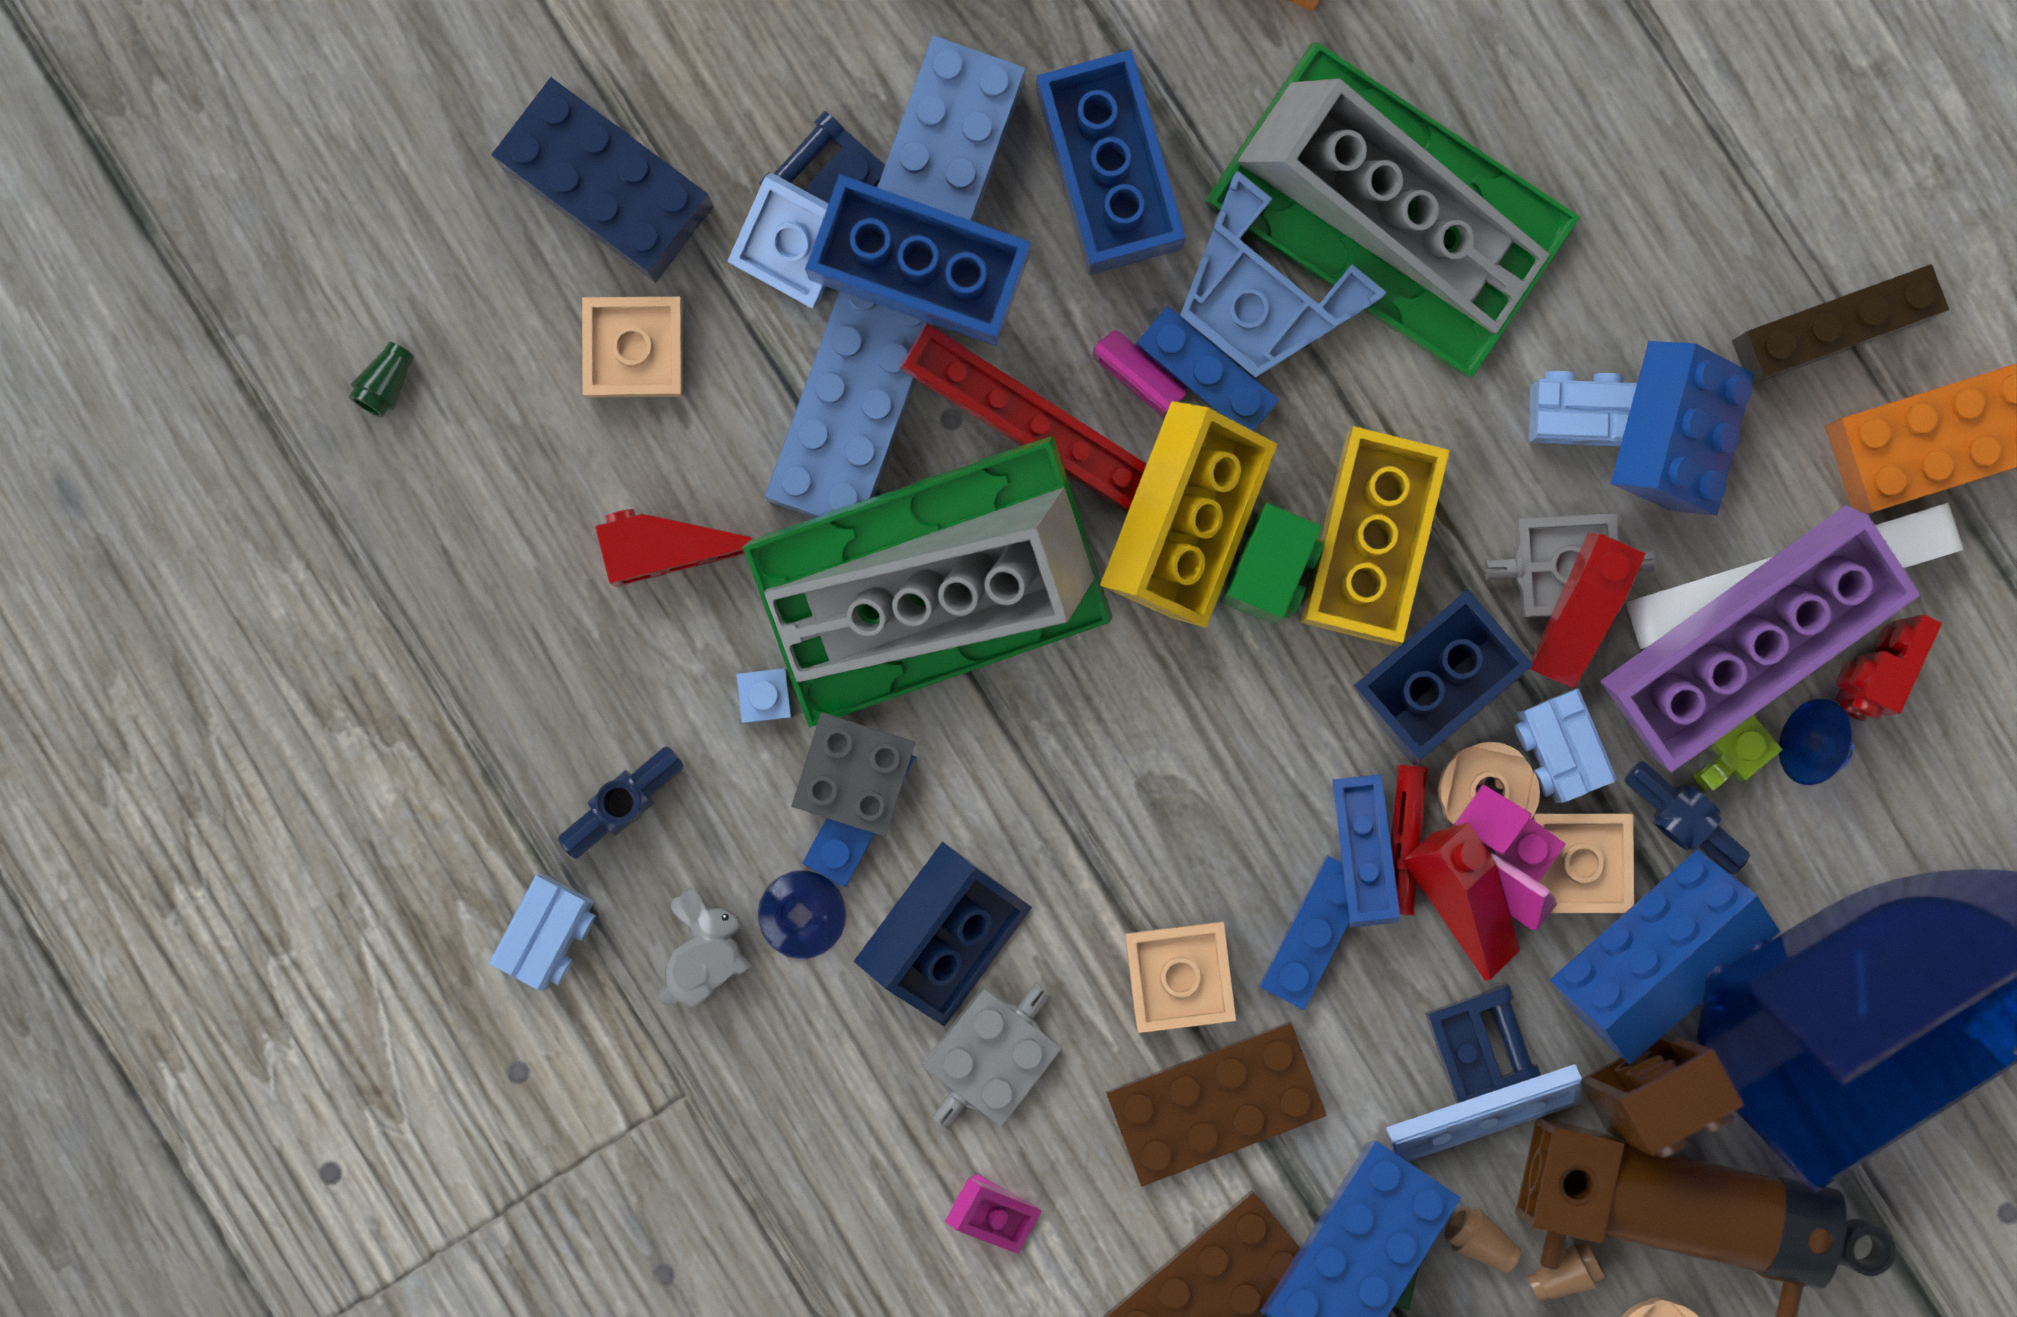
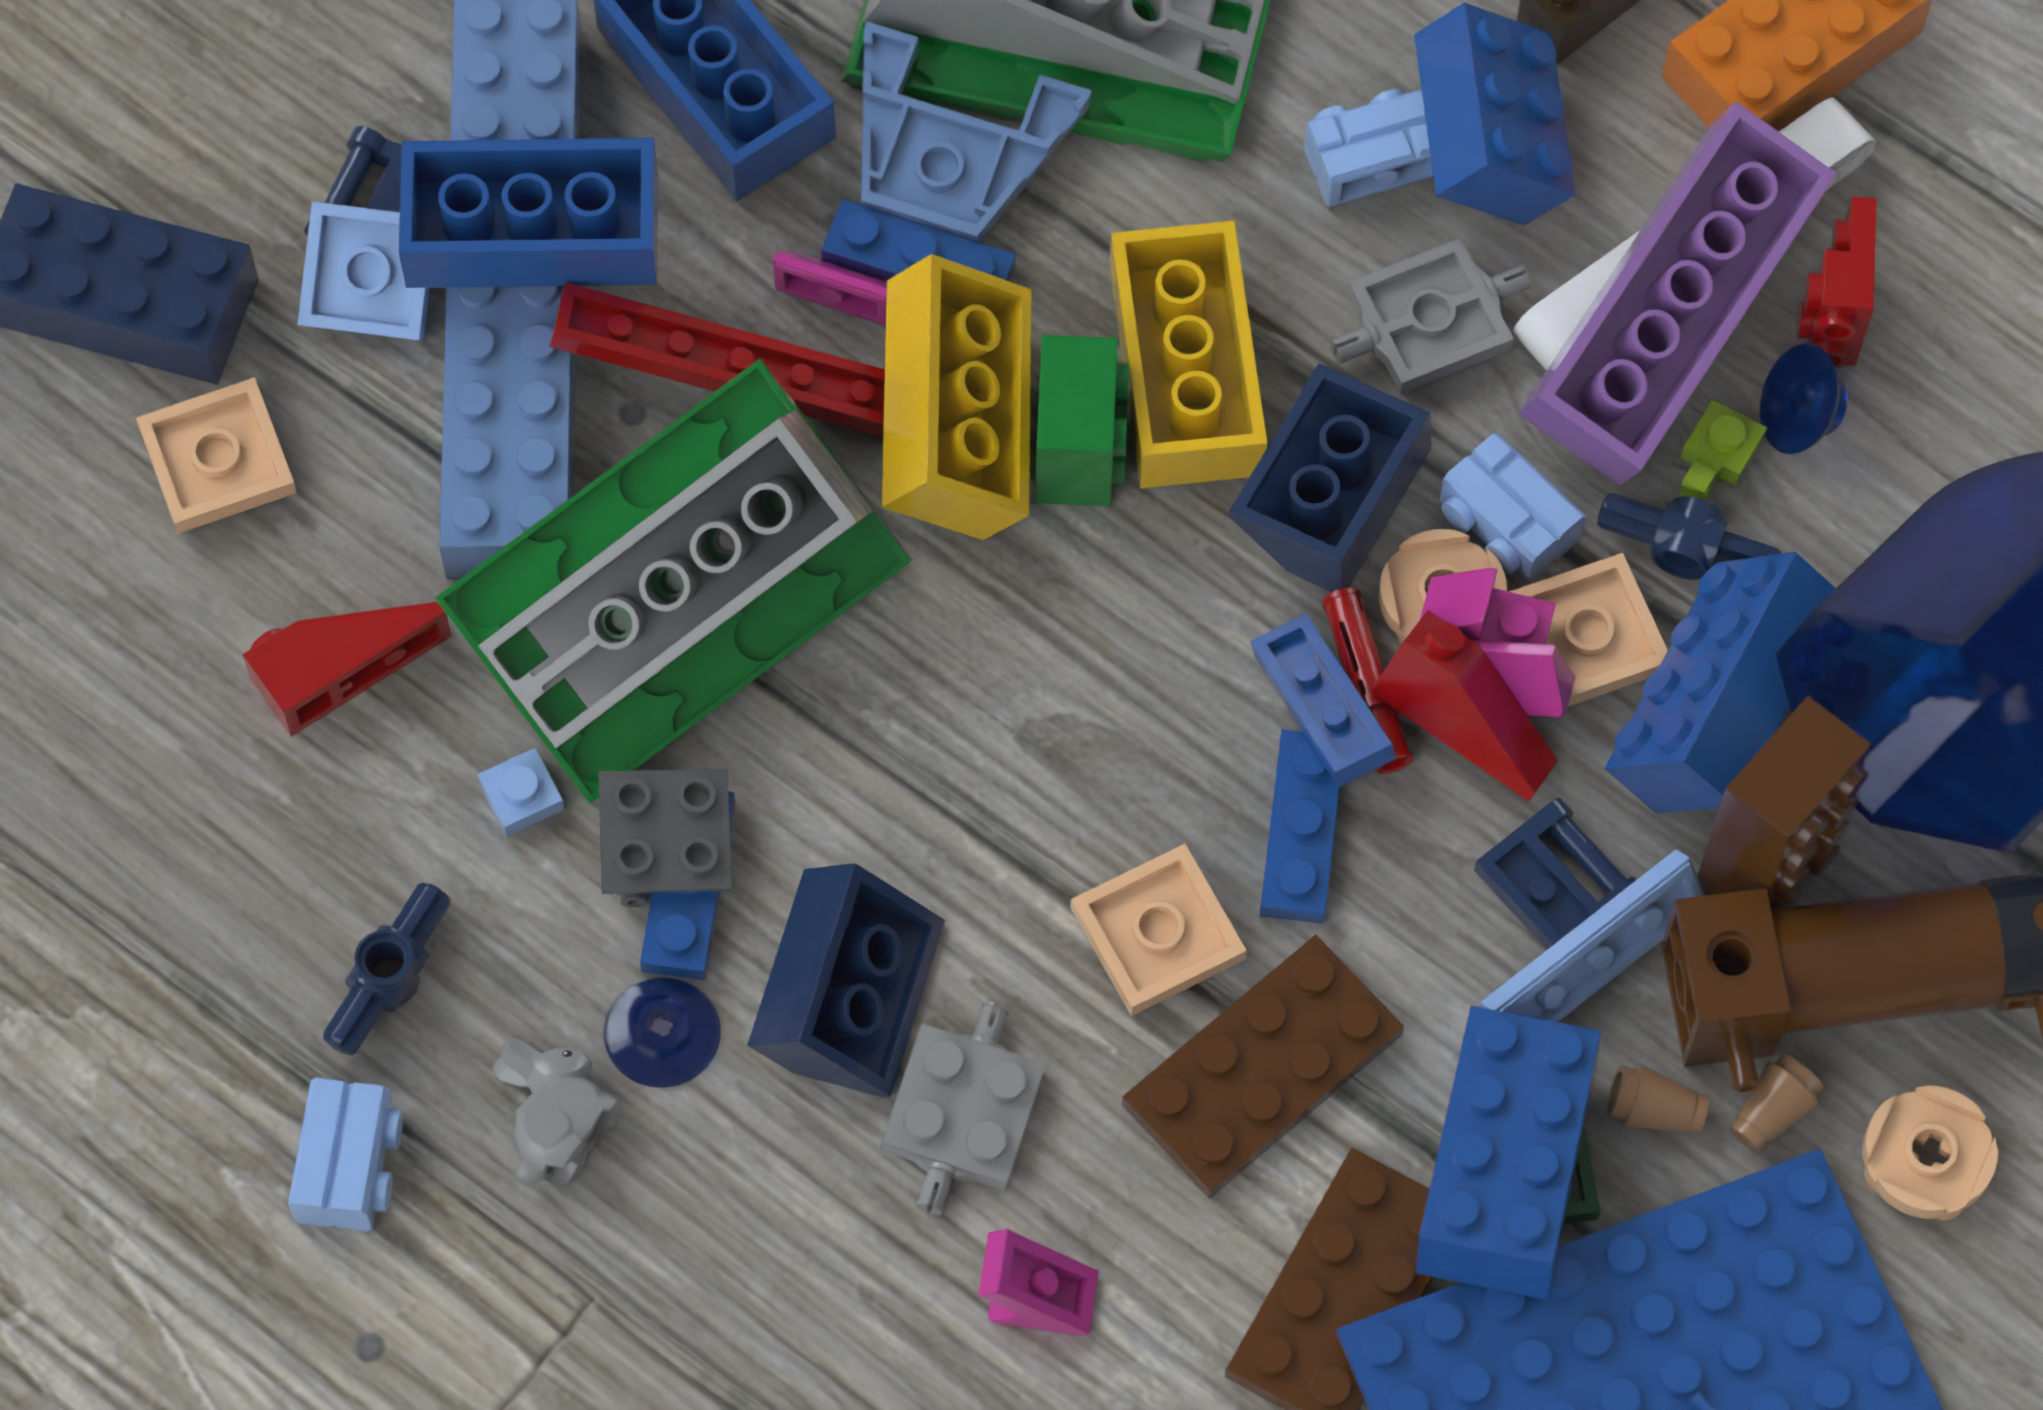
camera: 20 degrees left, 20 degrees down
(1586, 607) = (1467, 339): red slope -> none

